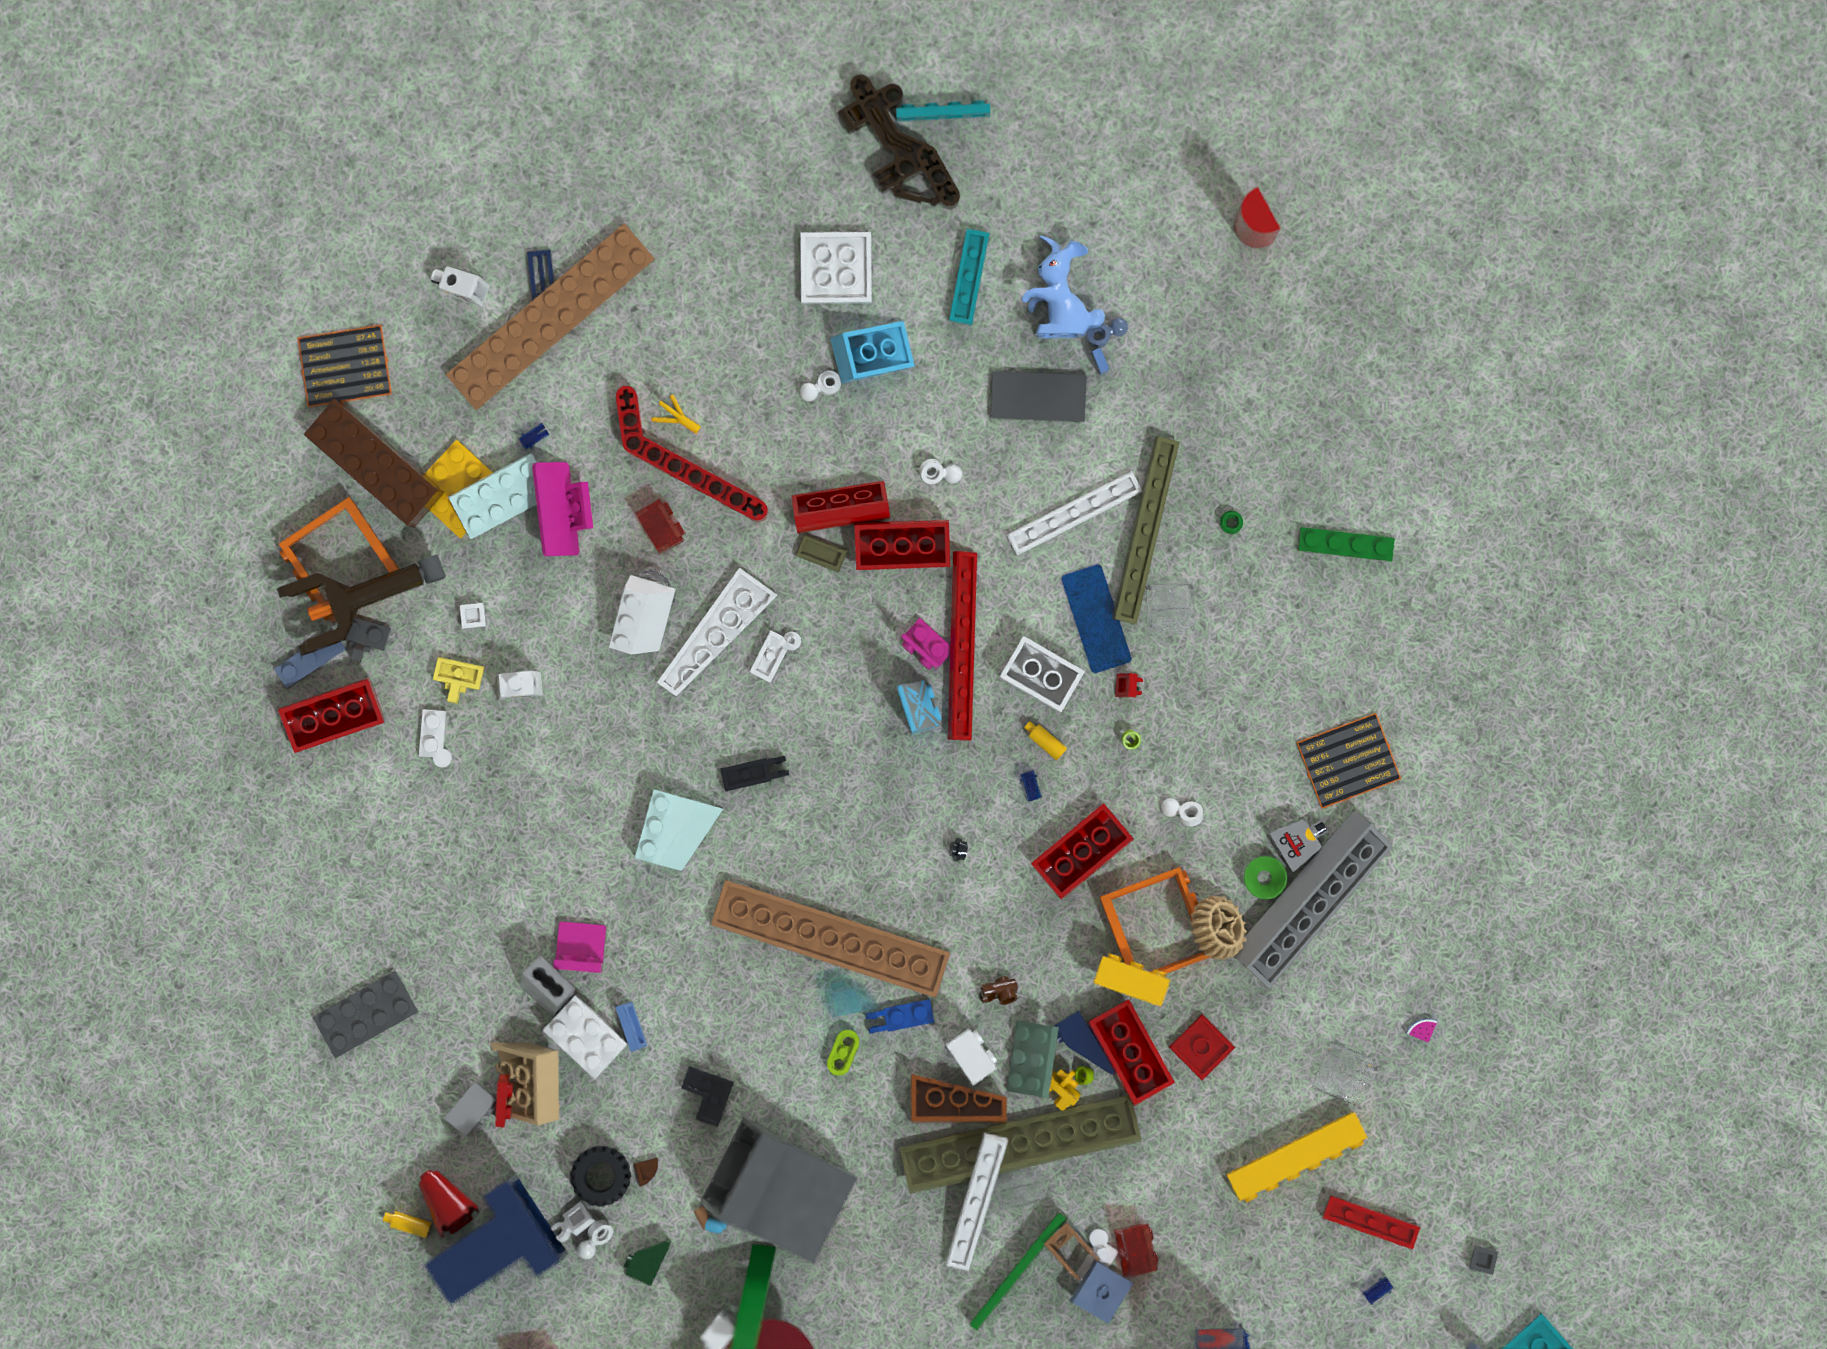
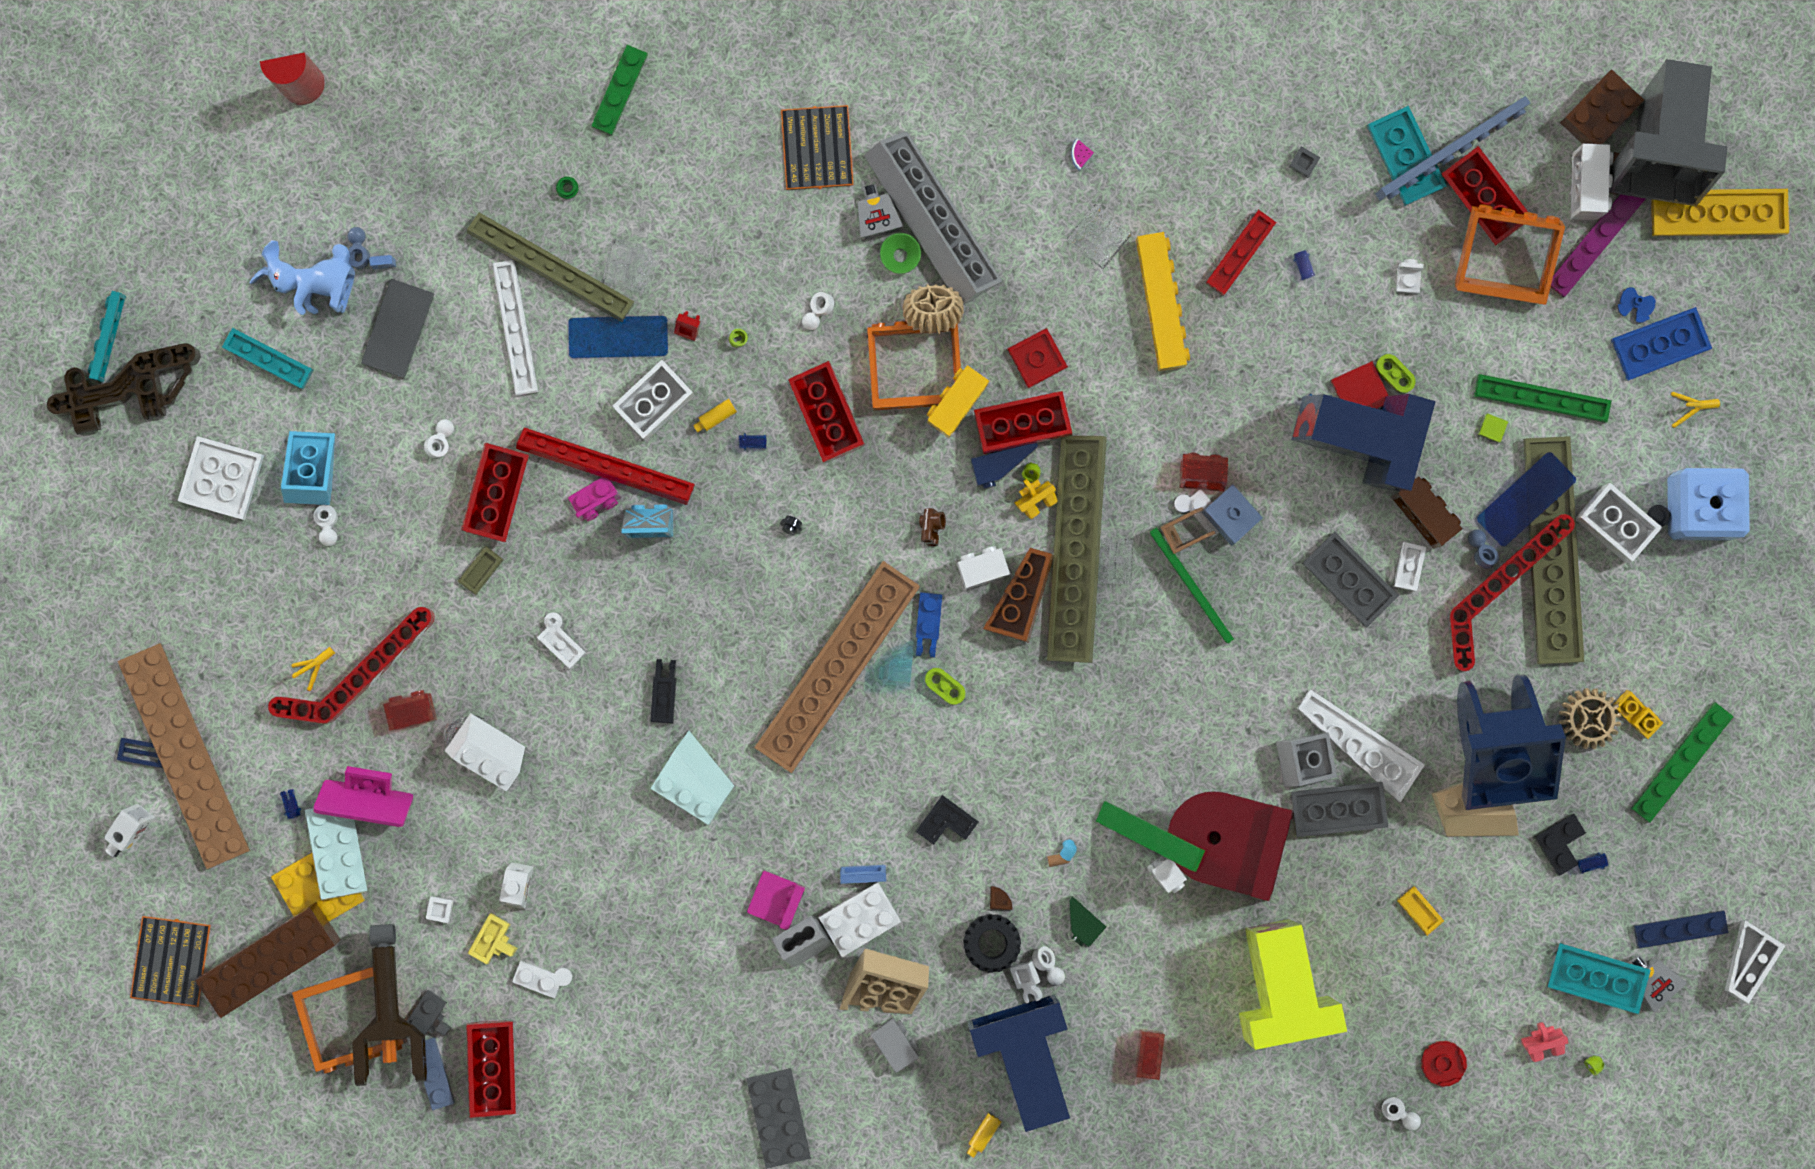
camera: 75 degrees left, 0 degrees up
(446, 1203) = (975, 1093): red cone -> none
(503, 1110) = (887, 1009): red plate -> none
(729, 615) = (513, 673): white wing -> none
(777, 1190) = (1053, 783): dark grey piece -> none
(840, 506) = (443, 539): red brick -> none
(976, 1201) = (1117, 604): white tile -> none
(1032, 1059) = (1002, 514): sand green plate -> none

